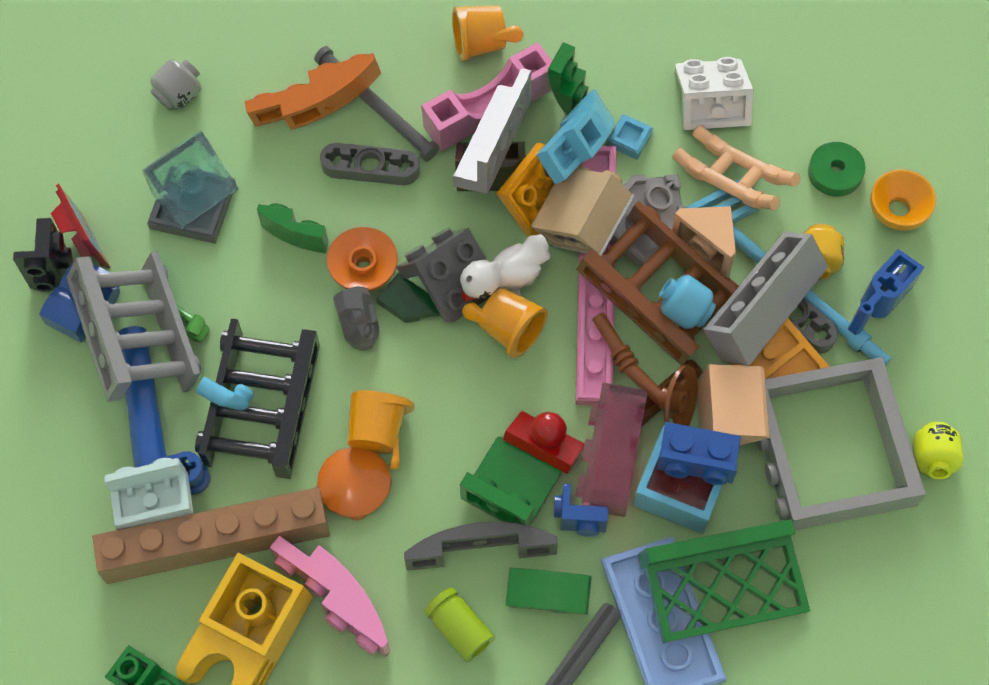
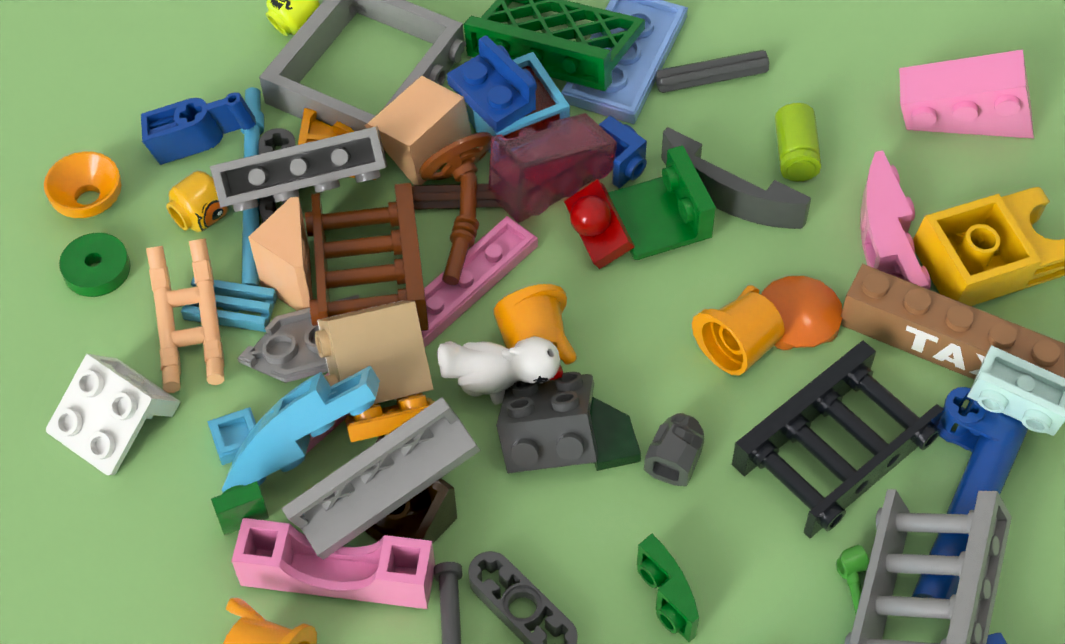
camera: 140 degrees left, 10 degrees down
(223, 397) = (878, 433): medium azure arm -> none
(358, 246) = (627, 481): orange dish -> none
(548, 591) = (707, 120): green slope -> none
(687, 302) = (370, 208): medium azure head -> none

